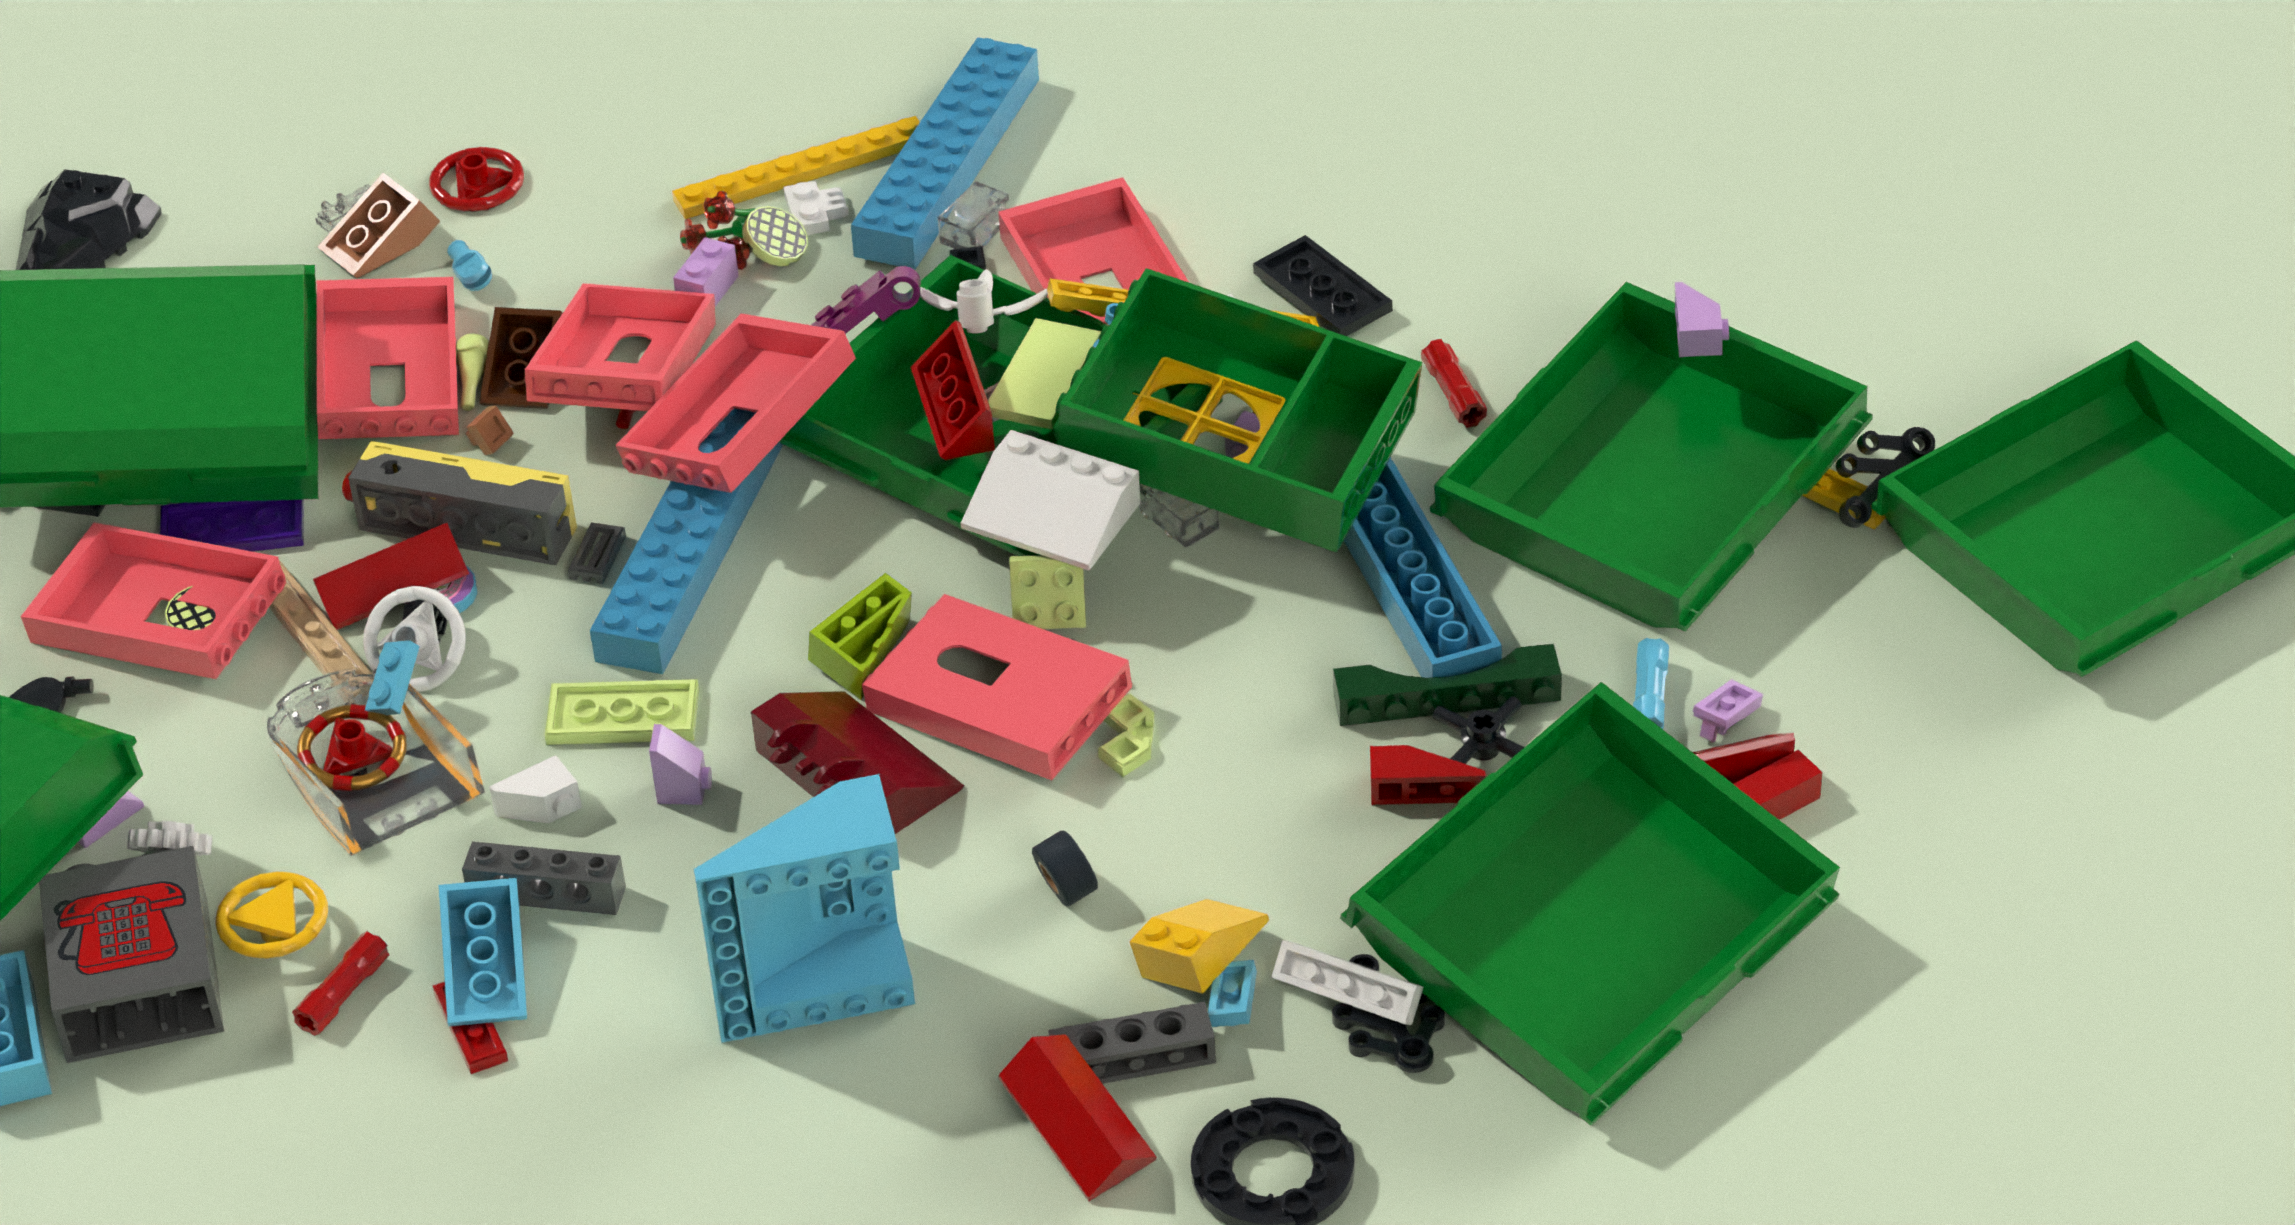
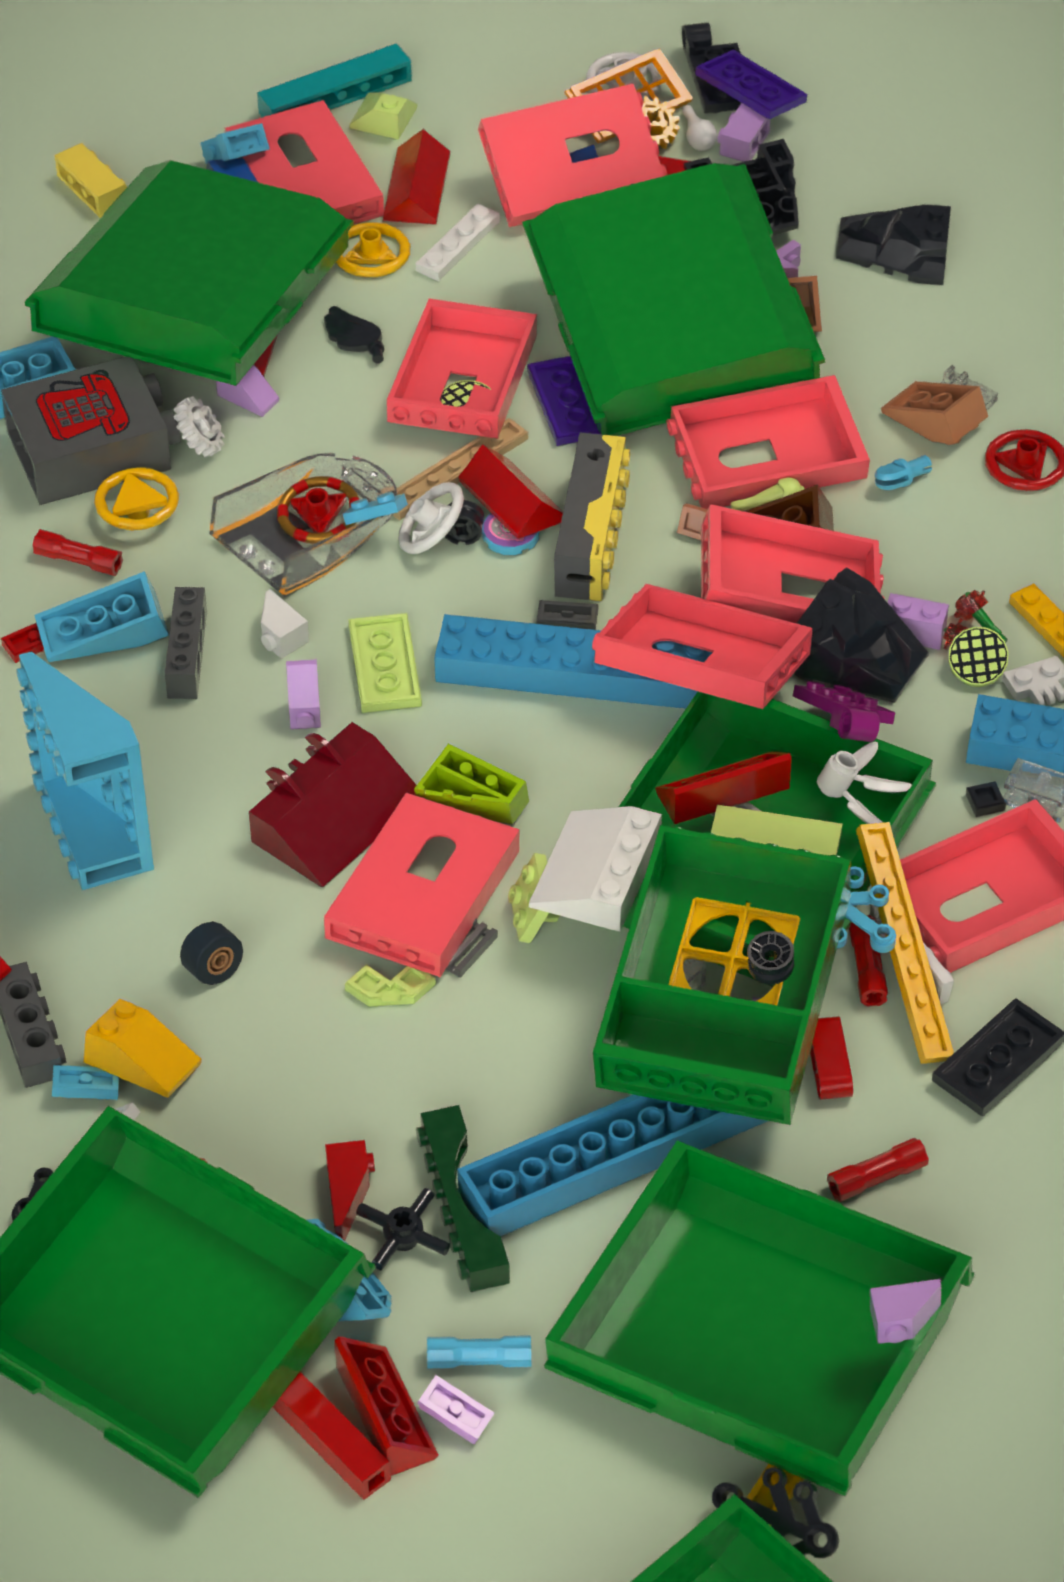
camera: 80 degrees right, 5 degrees up
(717, 297) = (859, 640): none -> black wedge
(1265, 338) = (770, 945): none -> black wheel

